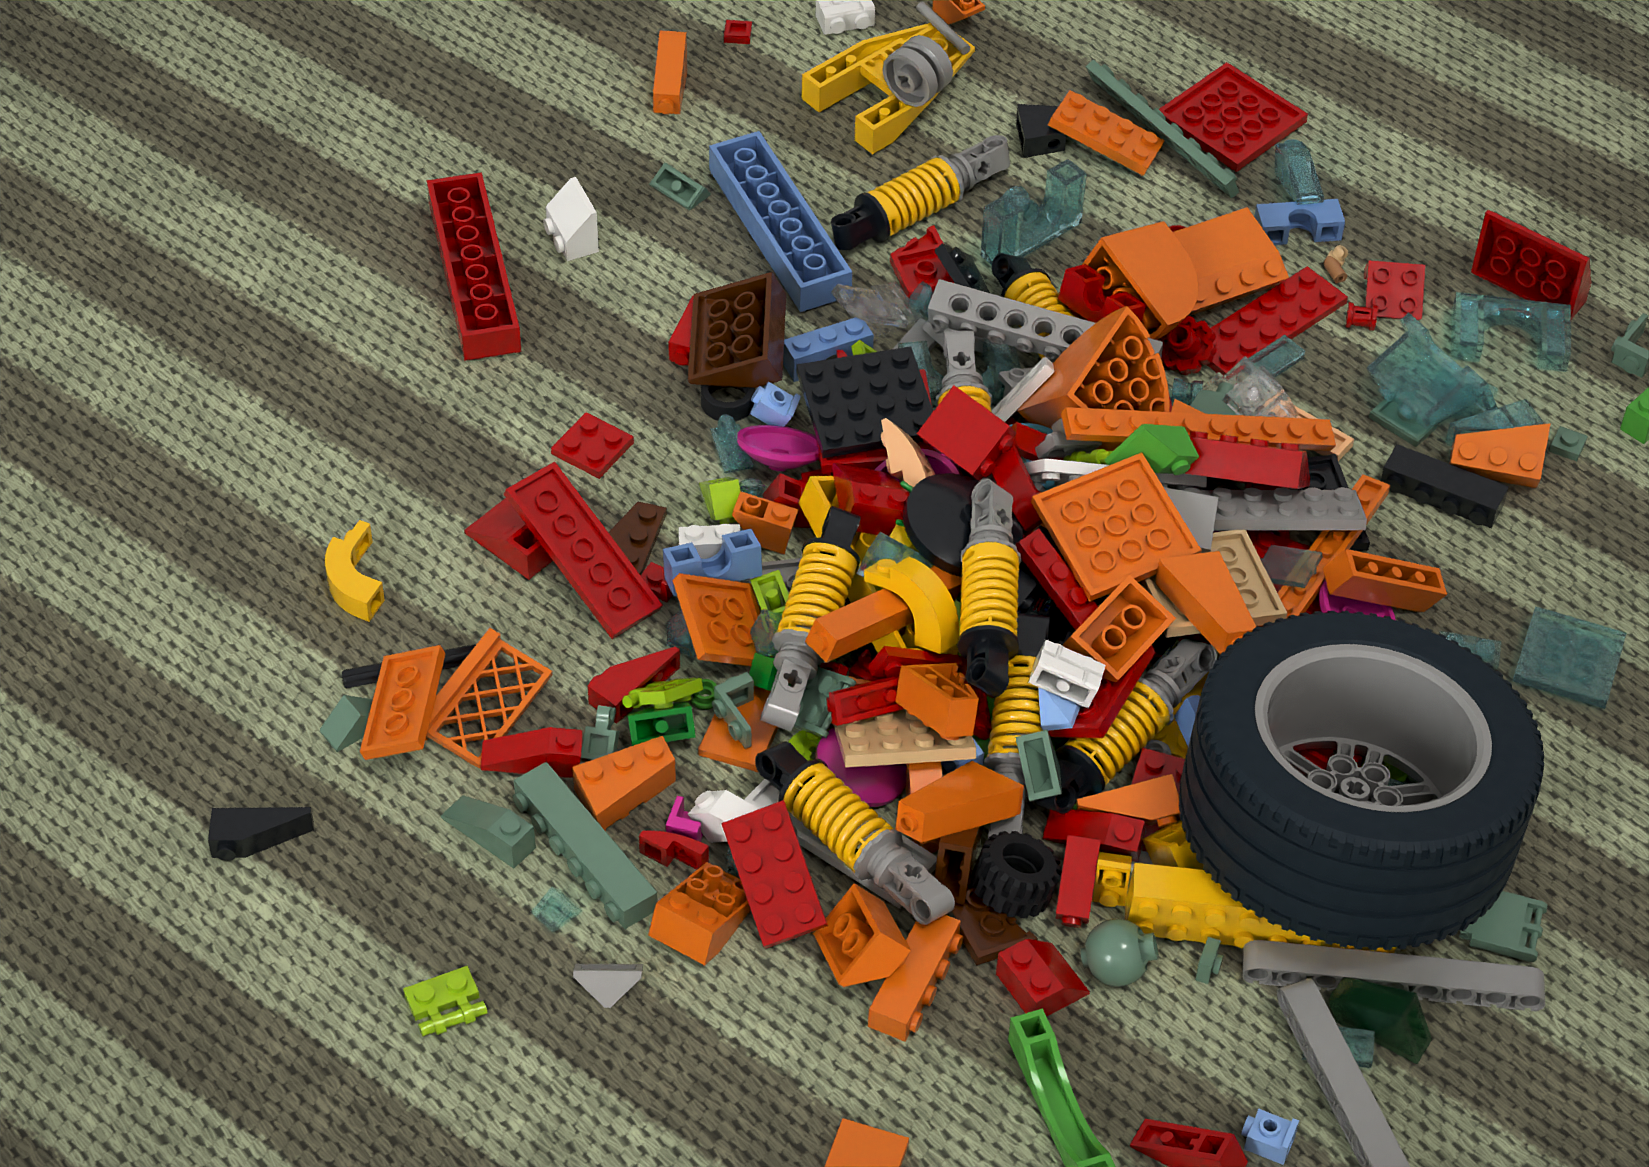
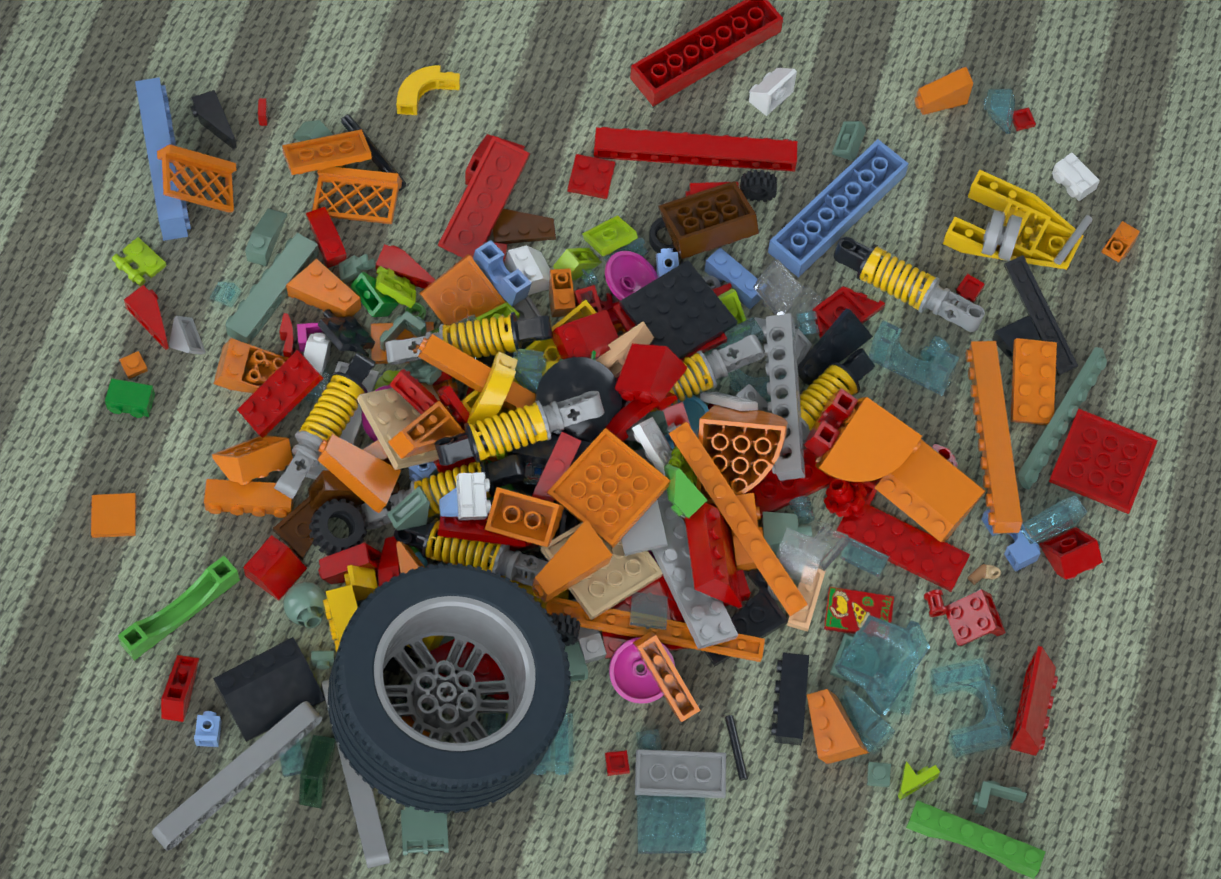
camera: 65 degrees right, 15 degrees up
(279, 768) = (262, 111): none -> red tile
(293, 907) = (158, 134): none -> medium blue brick
(361, 862) = (197, 163): none -> orange fence
(547, 1010) = (145, 309): none -> red slope
(612, 329) = (695, 149): none -> red brick
(620, 1060) = (133, 365): none -> orange plate
(680, 1076) = (129, 398): none -> green brick
(701, 447) = (610, 235): none -> lime plate
(707, 773) = (346, 333): none -> black plate
(708, 274) = (758, 185): none -> black tyre
(719, 38) = (1000, 107): none -> clear light blue slope
(947, 144) = (970, 288): none -> red plate
(1008, 91) = (1040, 312): none -> black plate
(1177, 184) = (994, 437): none -> orange brick
(1230, 1041) = (268, 688): none -> black slope
(1342, 392) = (850, 608): none -> tile
(1346, 176) = (1072, 553): none -> red slope
(1488, 565) = (736, 748): none -> black bar
(1515, 621) = (680, 773): none -> light grey tile
(1589, 410) = (911, 782): none -> lime slope

